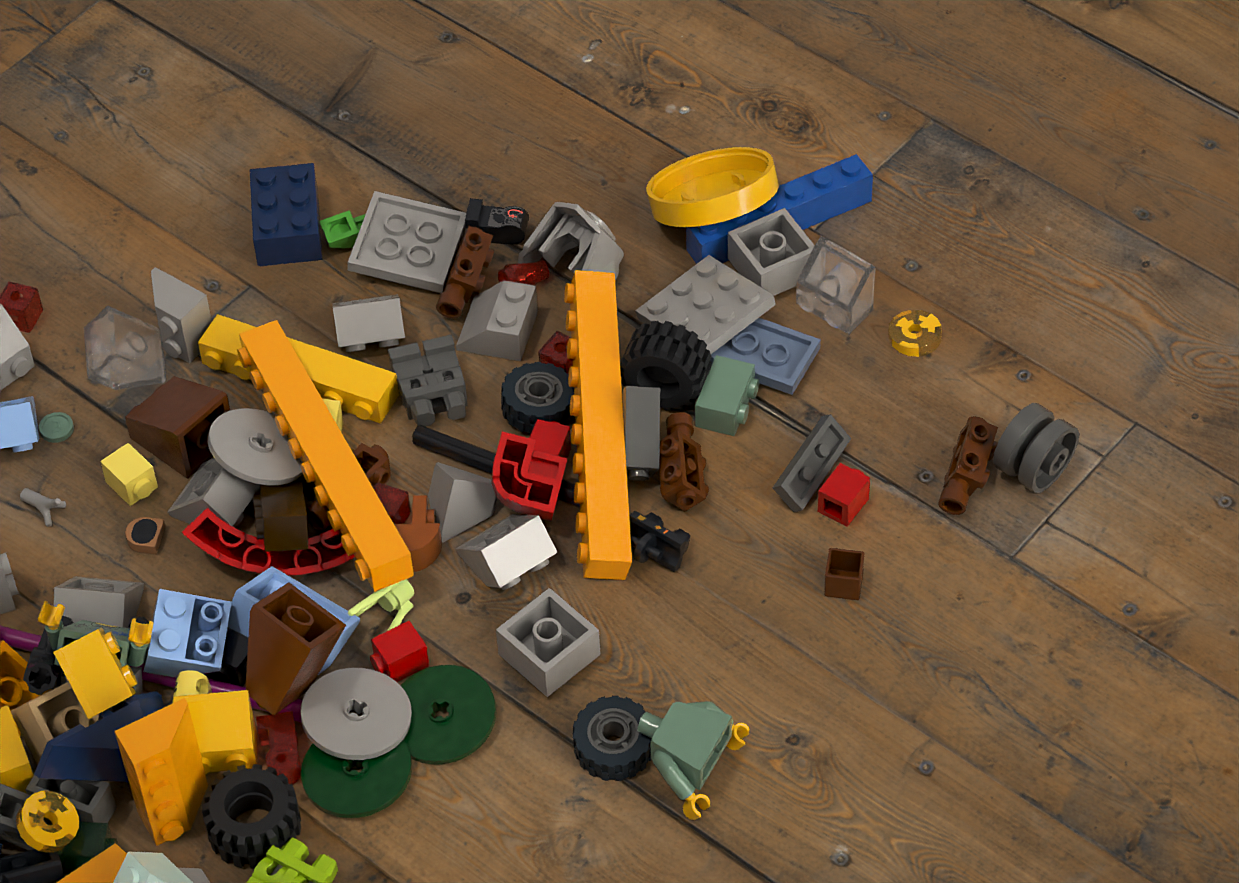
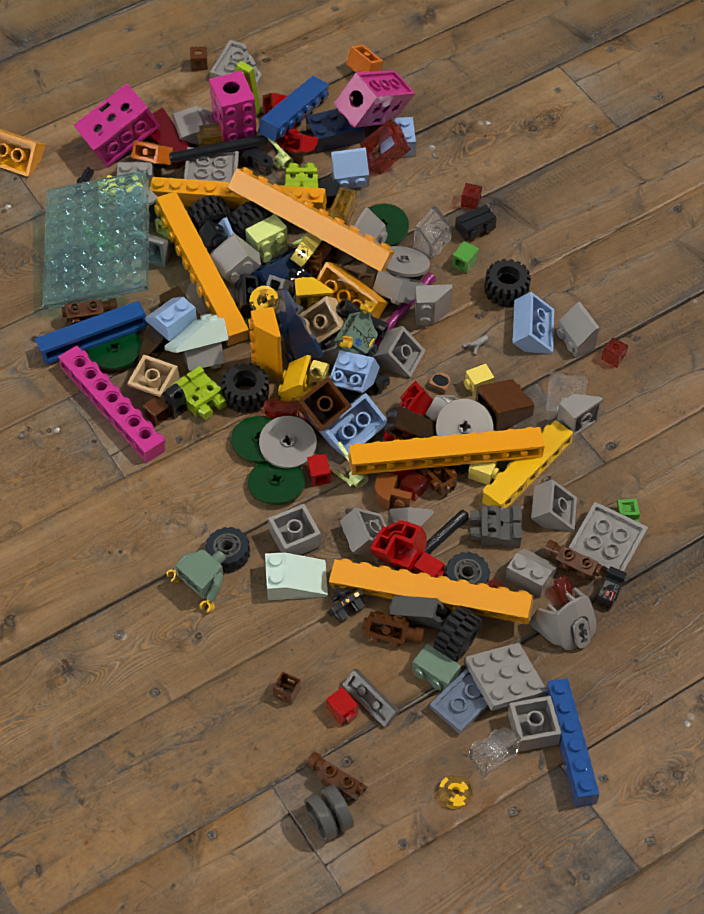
camera: 105 degrees right, 5 degrees up
(56, 427) = (528, 359): sand green piece -> none
(96, 672) = (327, 319): yellow slope -> none
(285, 214) = (648, 482): dark blue brick -> none
(634, 630) = (295, 576): none -> light aqua slope
(712, 187) = (593, 701): yellow brick -> none

